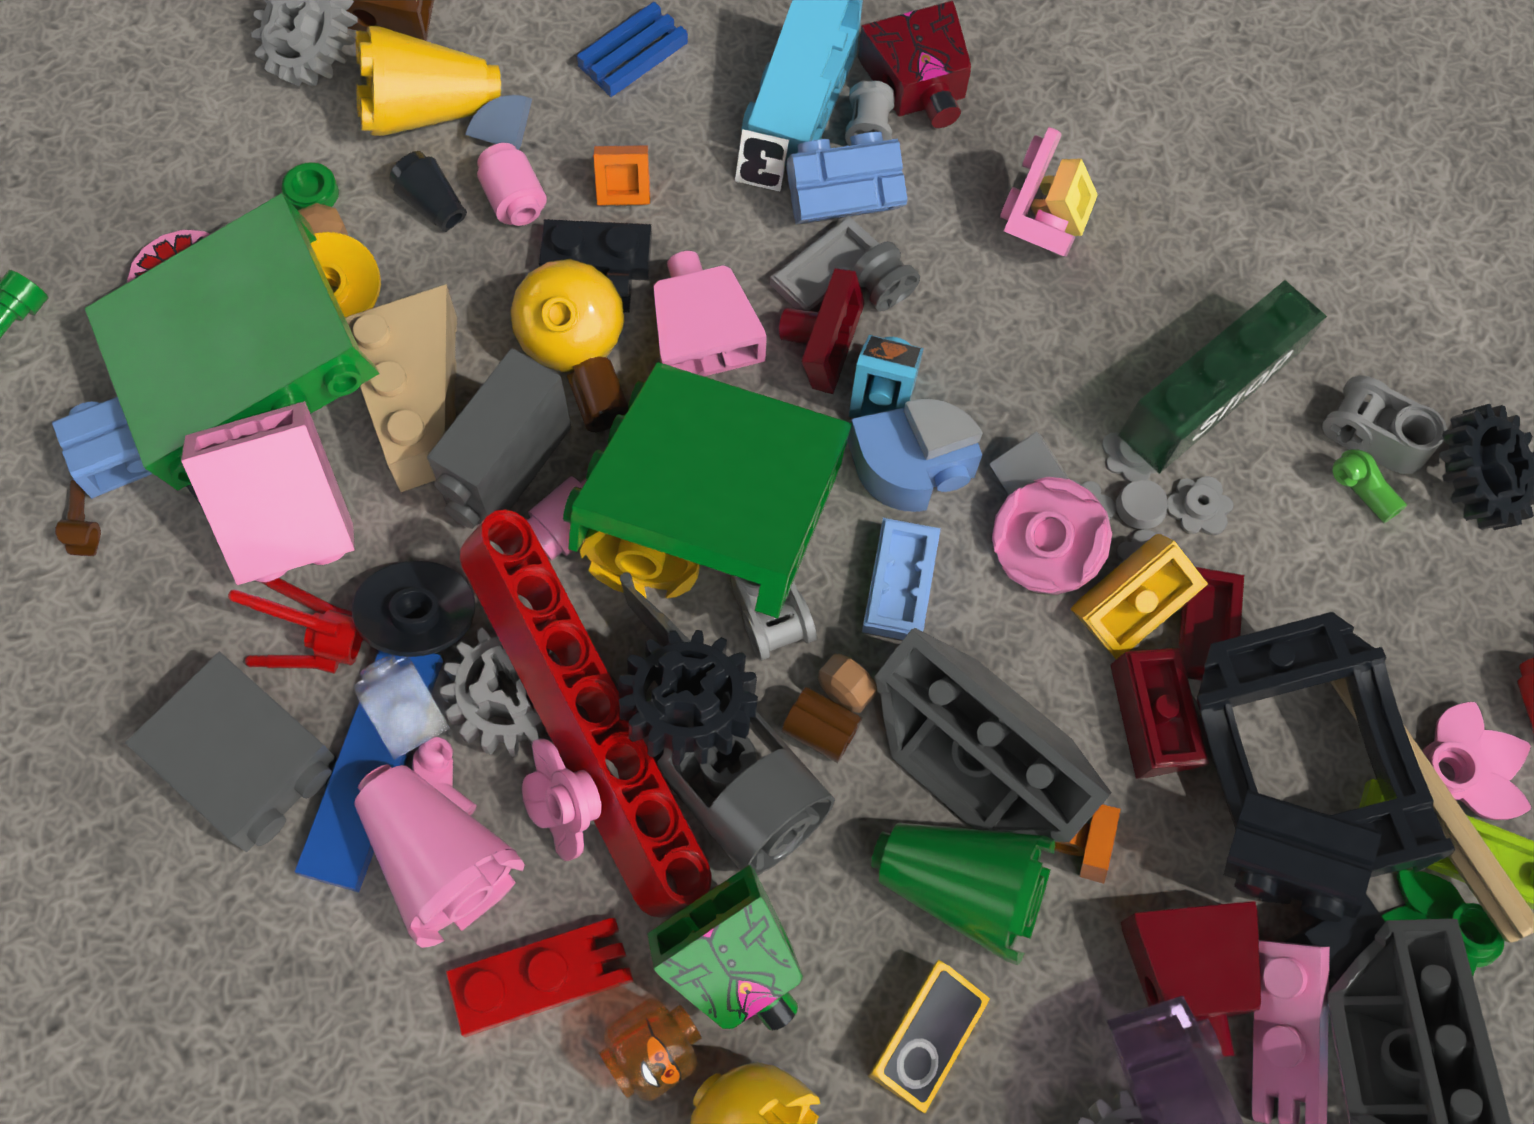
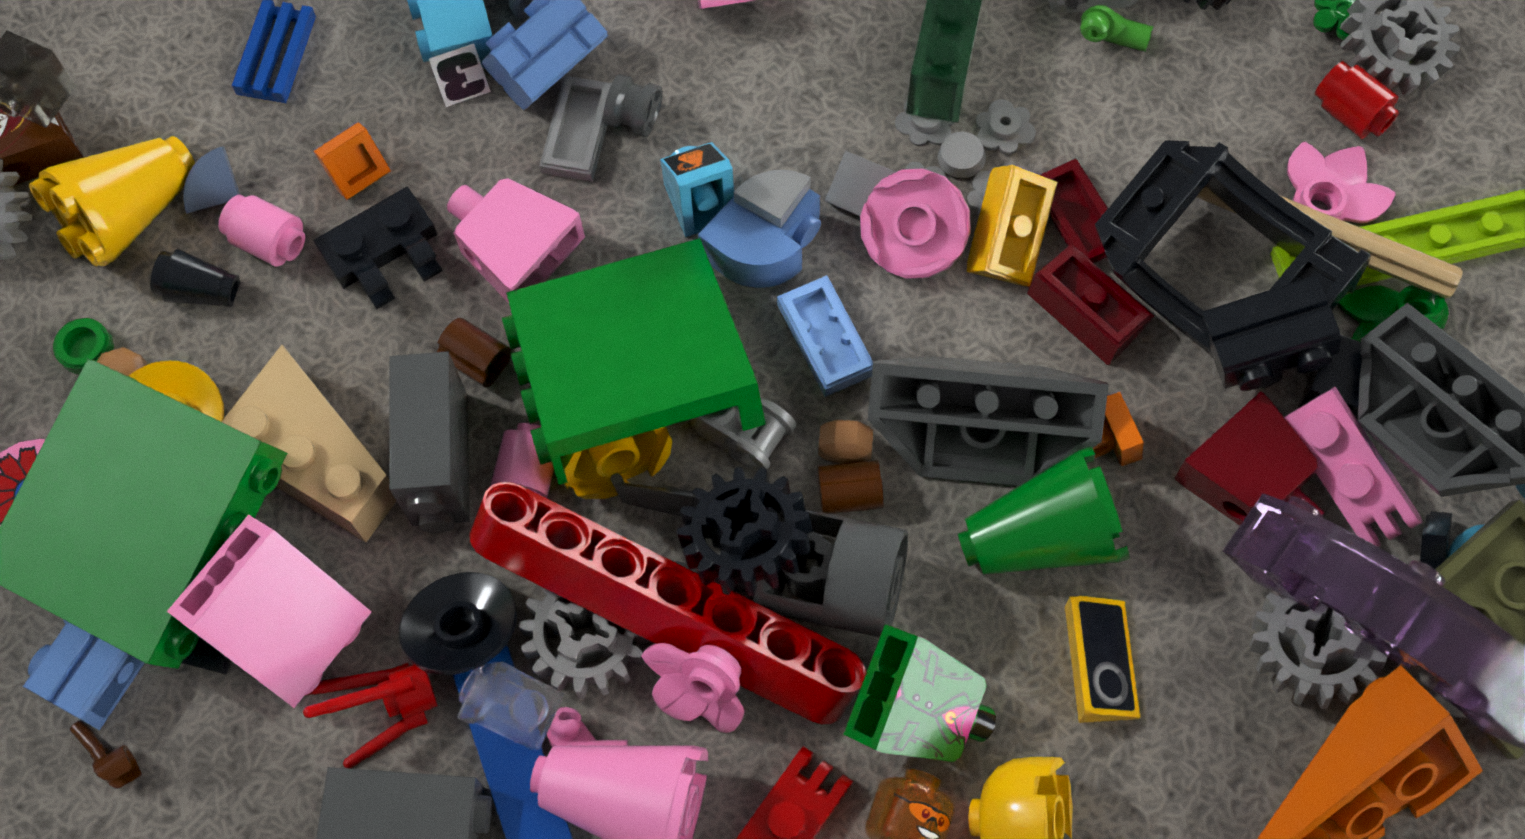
camera: 30 degrees left, 0 degrees up
(566, 314) = (398, 304): yellow cylinder -> none
(826, 331) = (618, 179): dark red tile -> none

